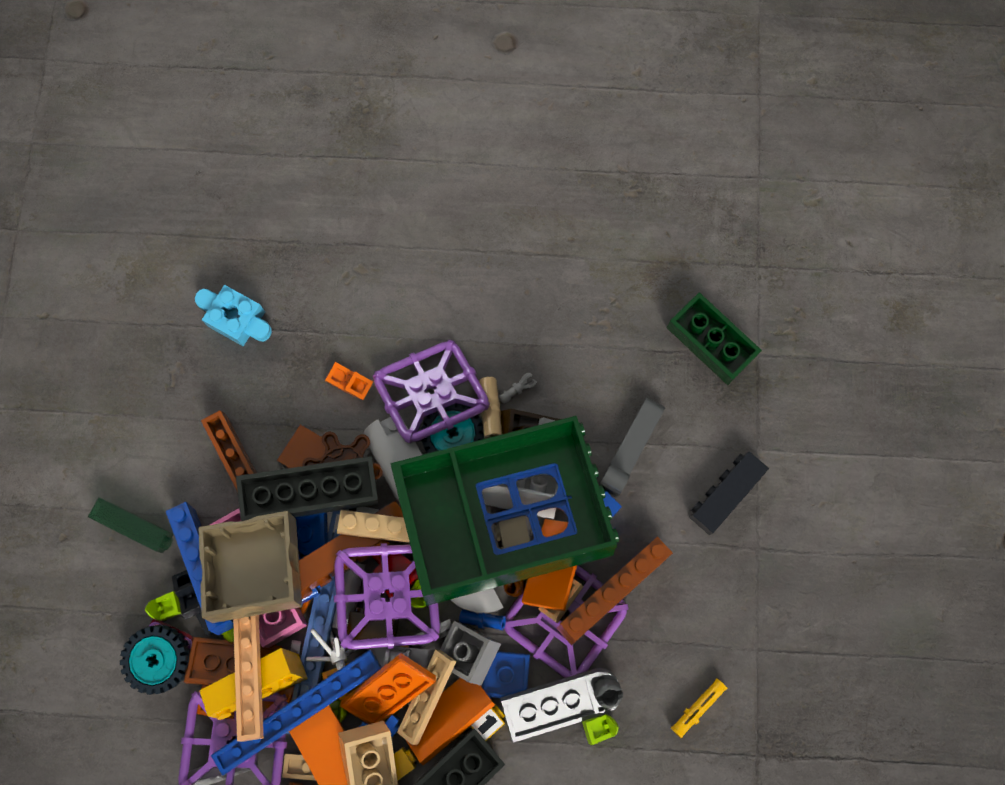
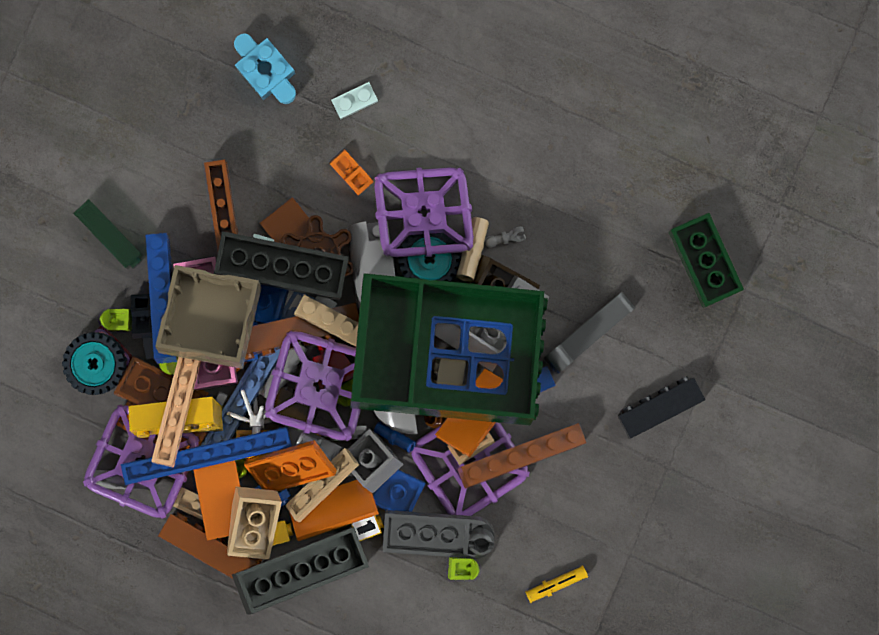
camera: 20 degrees right, 10 degrees up
(329, 315) = (354, 100): none -> light aqua plate

